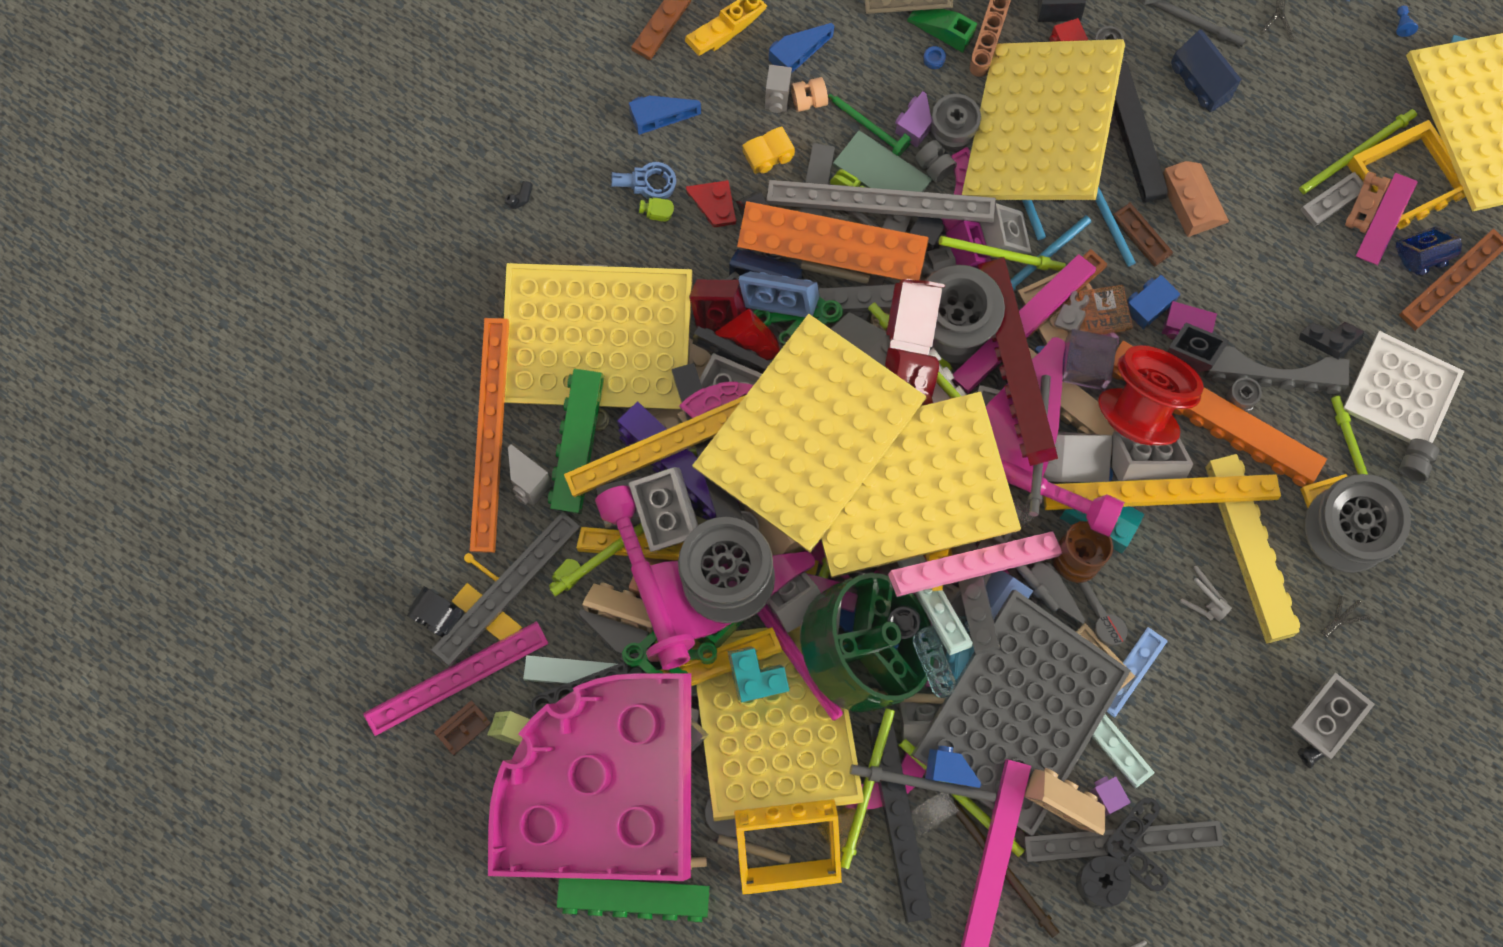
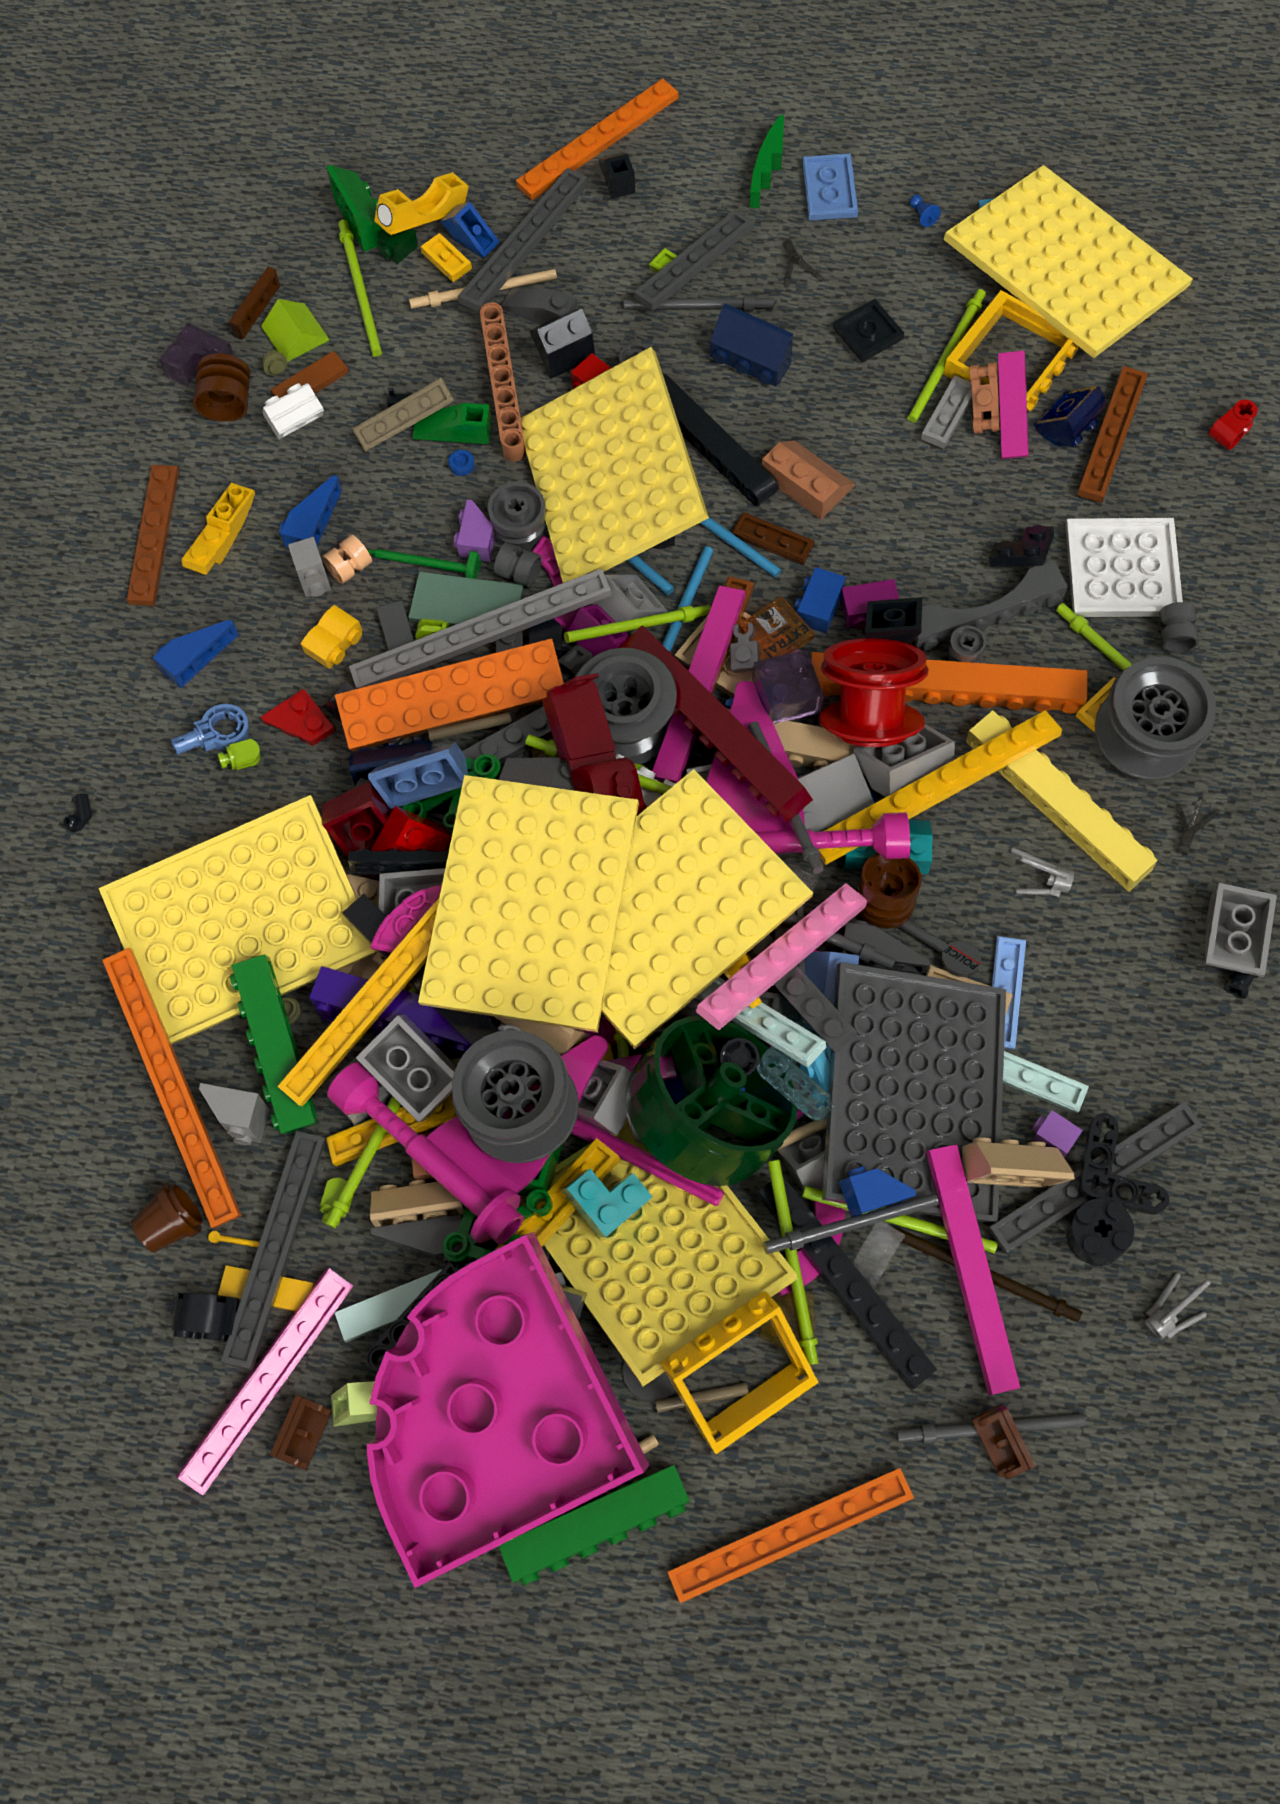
camera: 20 degrees left, 5 degrees down
(442, 529) = (167, 1218): none -> reddish brown piece
(1306, 101) = (868, 330): none -> black plate

